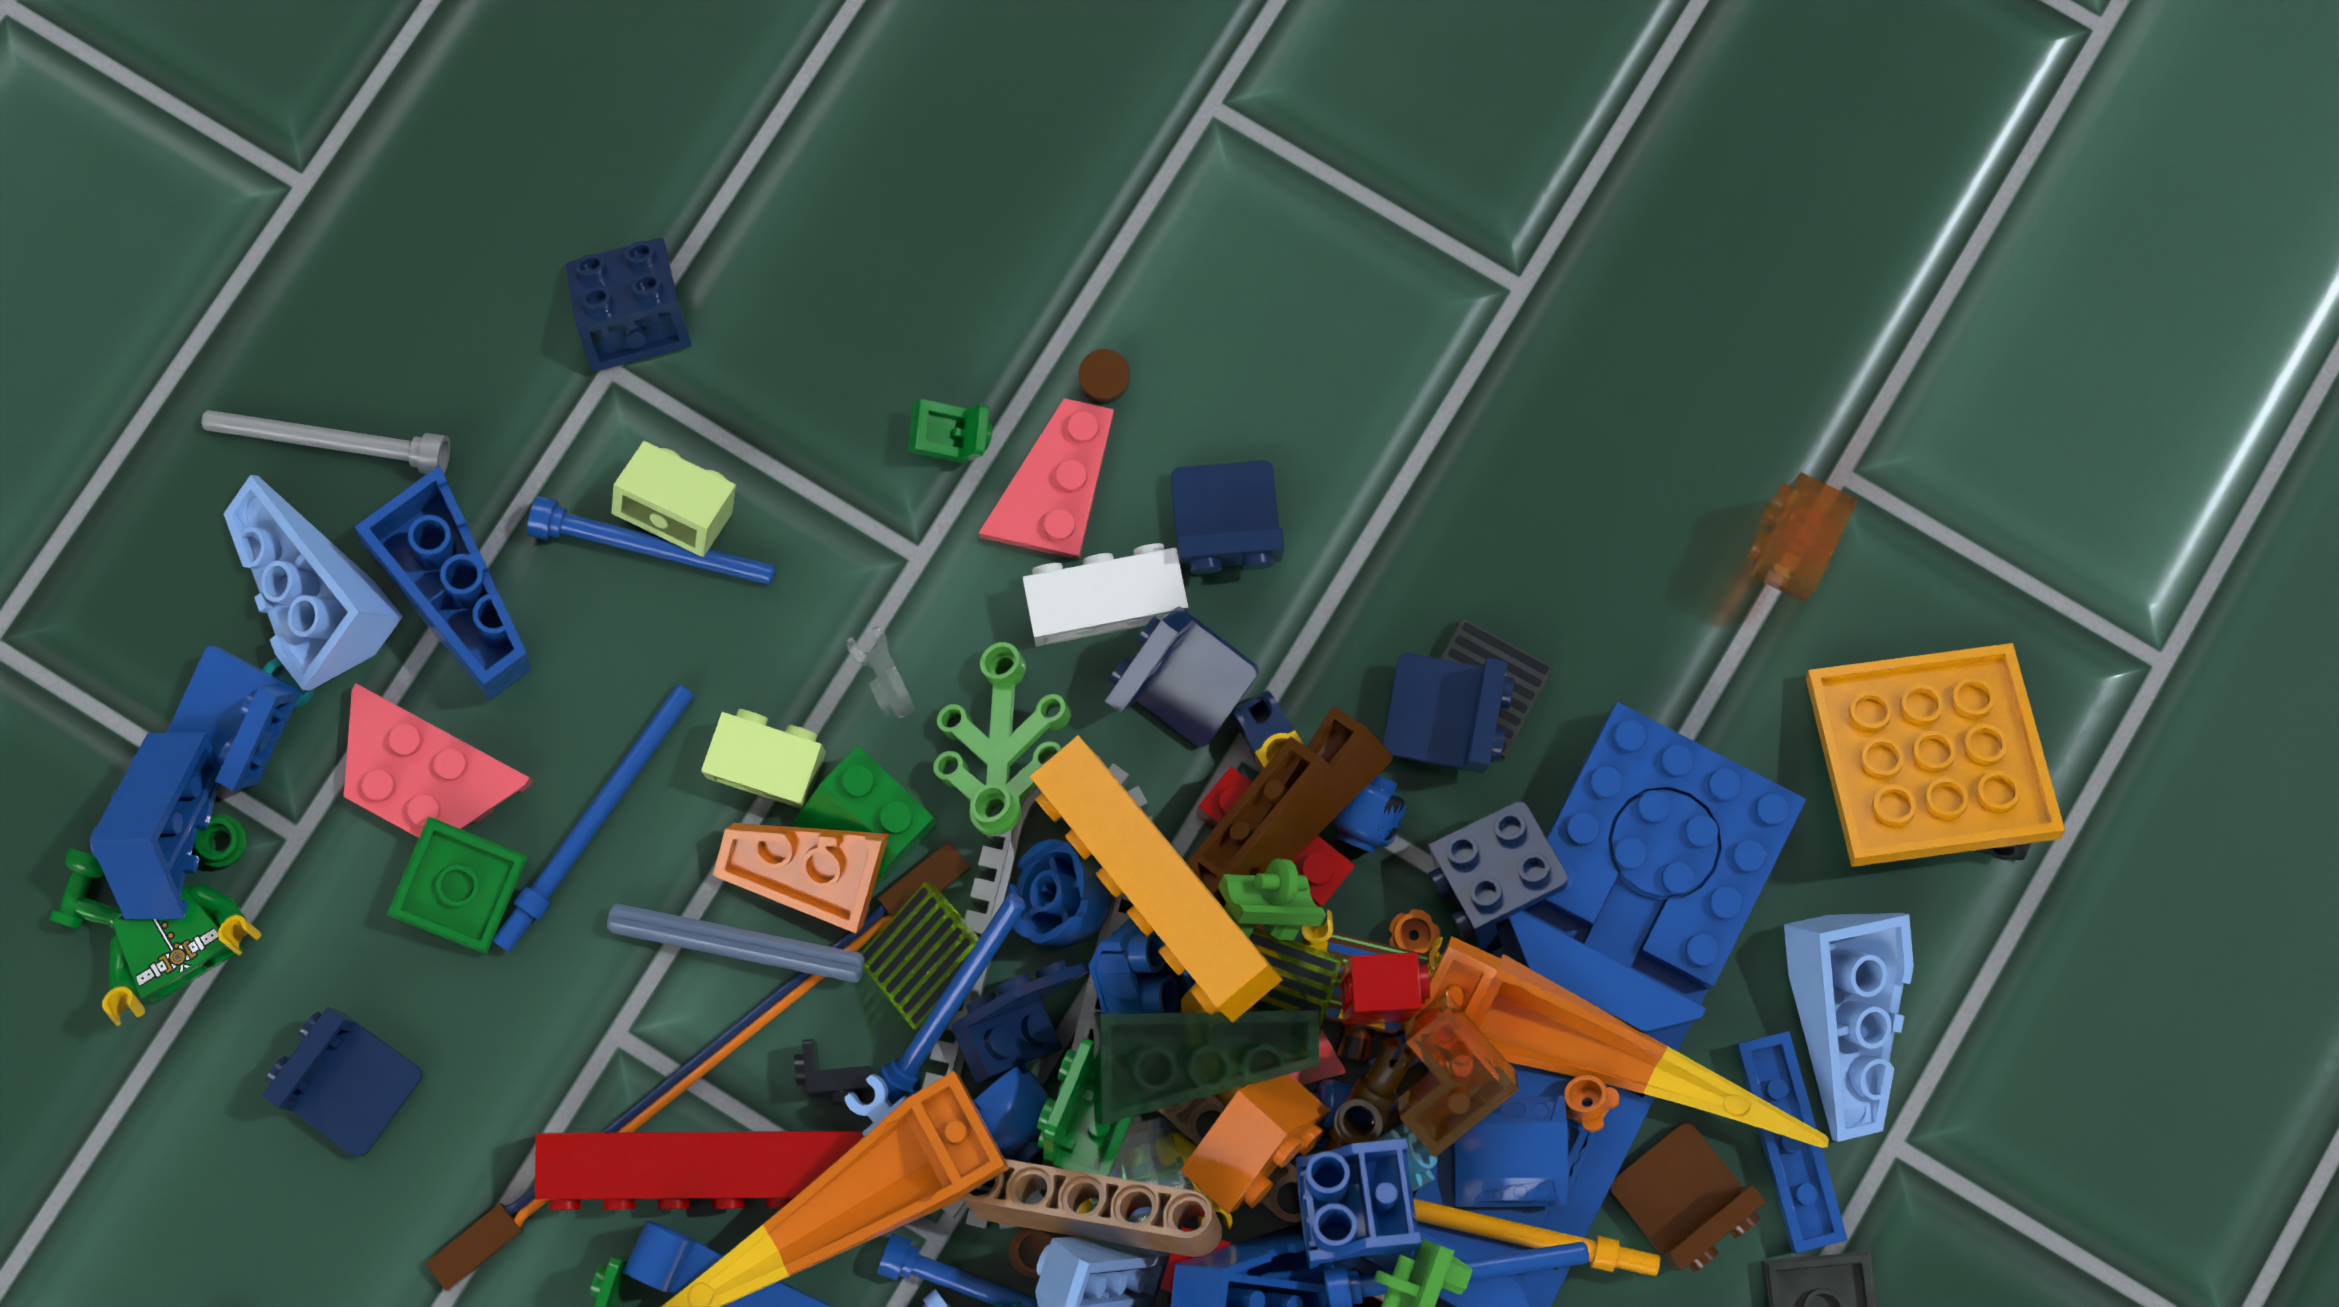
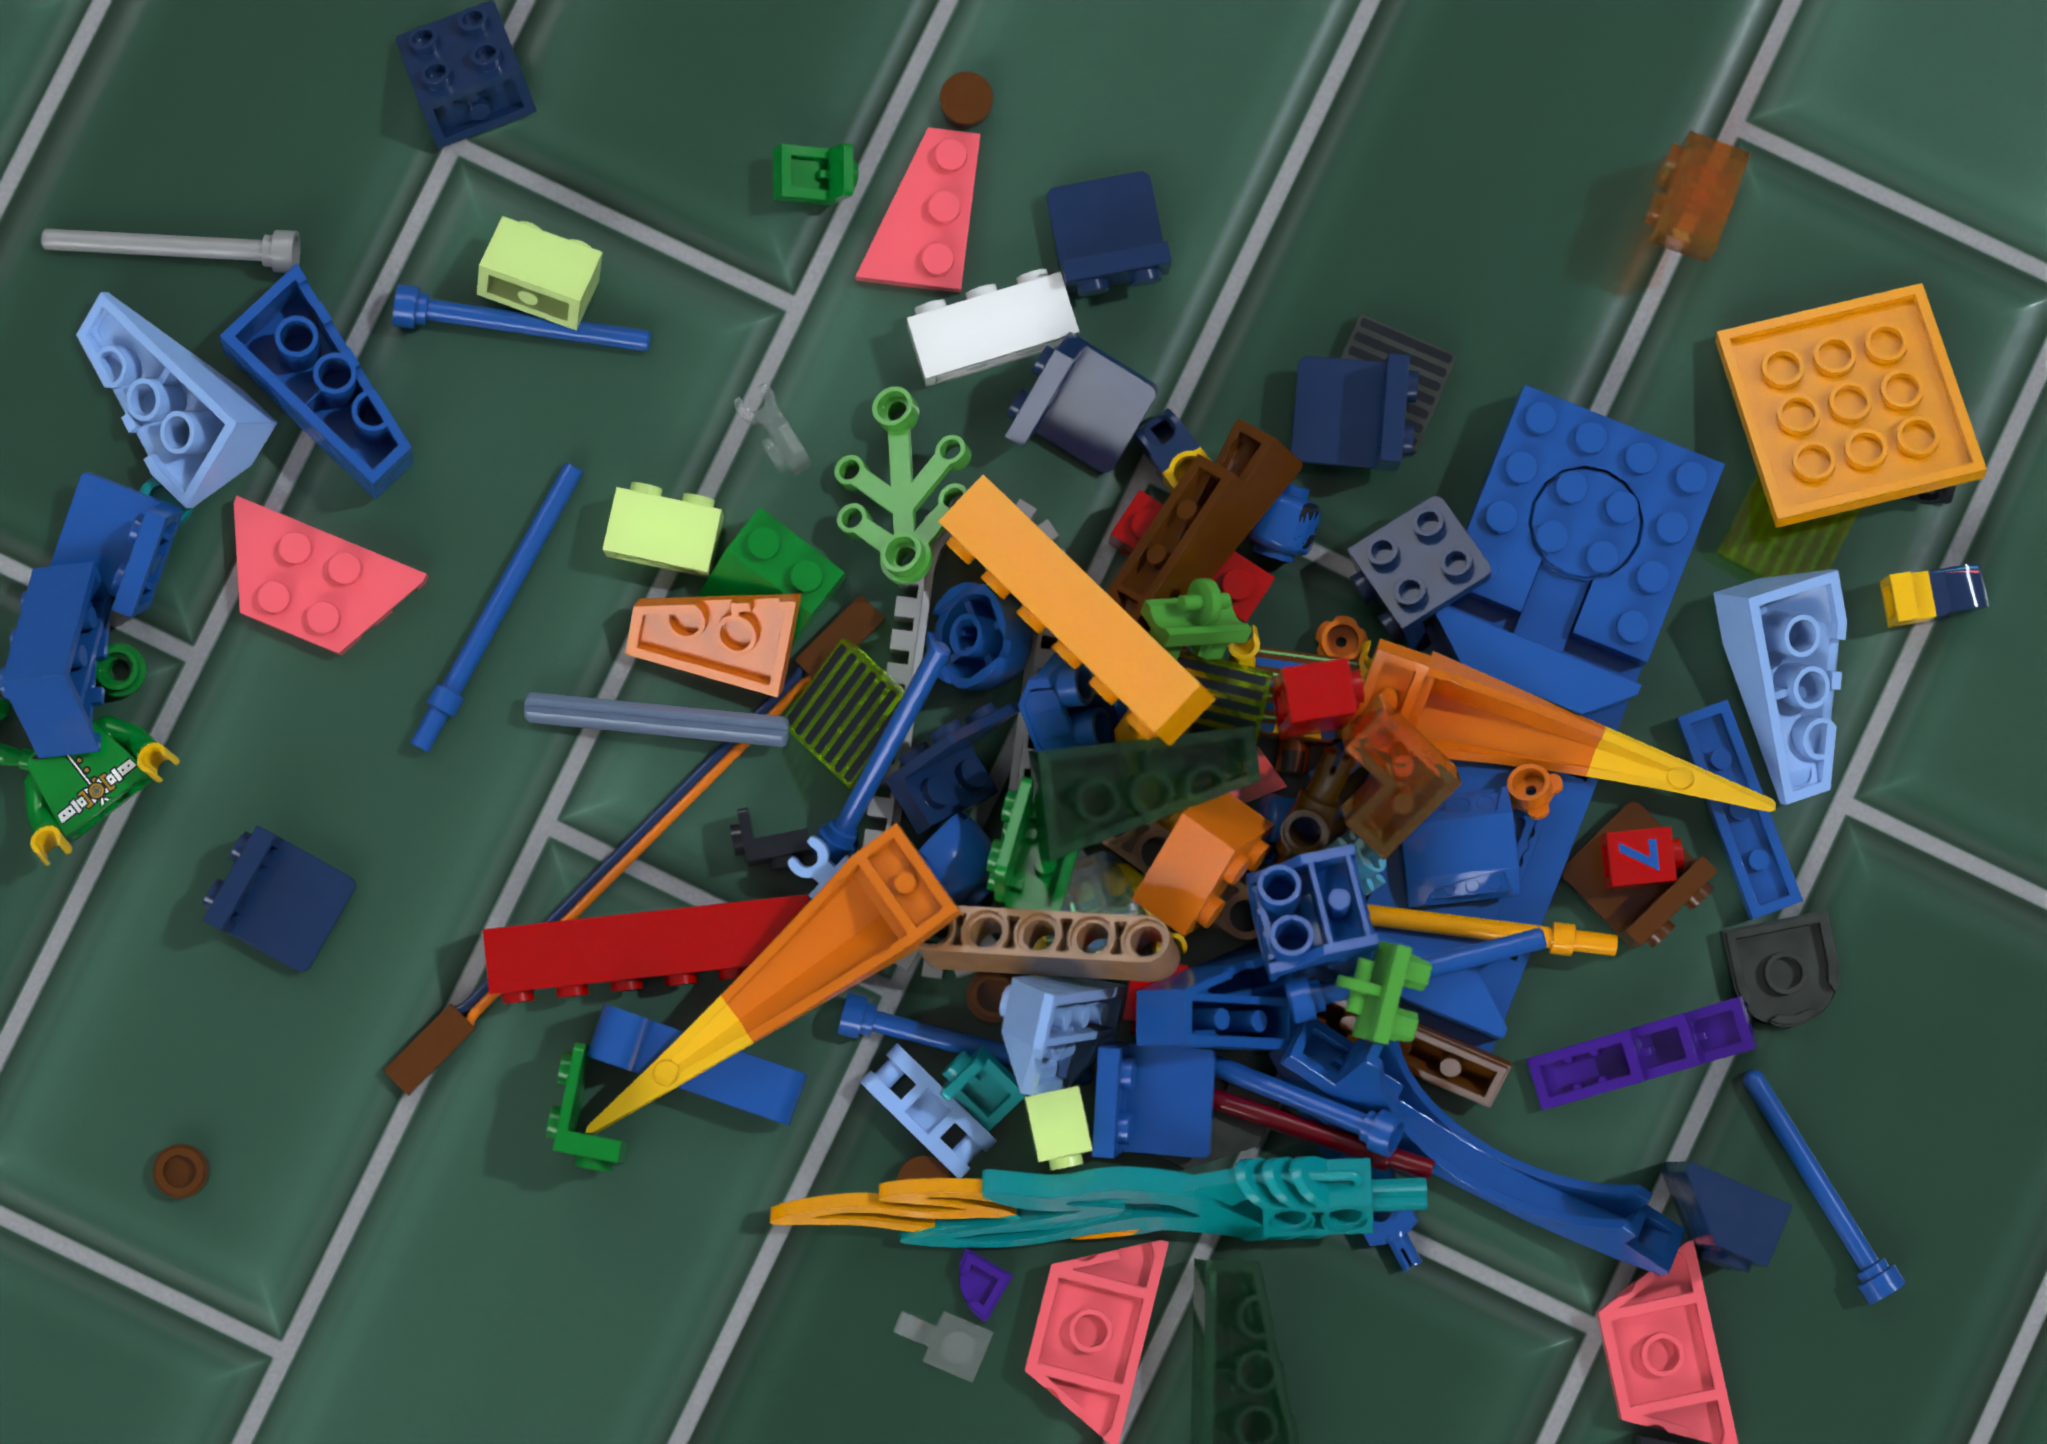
camera: 10 degrees left, 5 degrees up
(457, 885) = (367, 690): green plate -> none
(1690, 1180) = (1640, 857): none -> red brick
(1866, 889) = (1792, 549): none -> clear neon green tile
(1999, 947) = (1932, 594): none -> leg

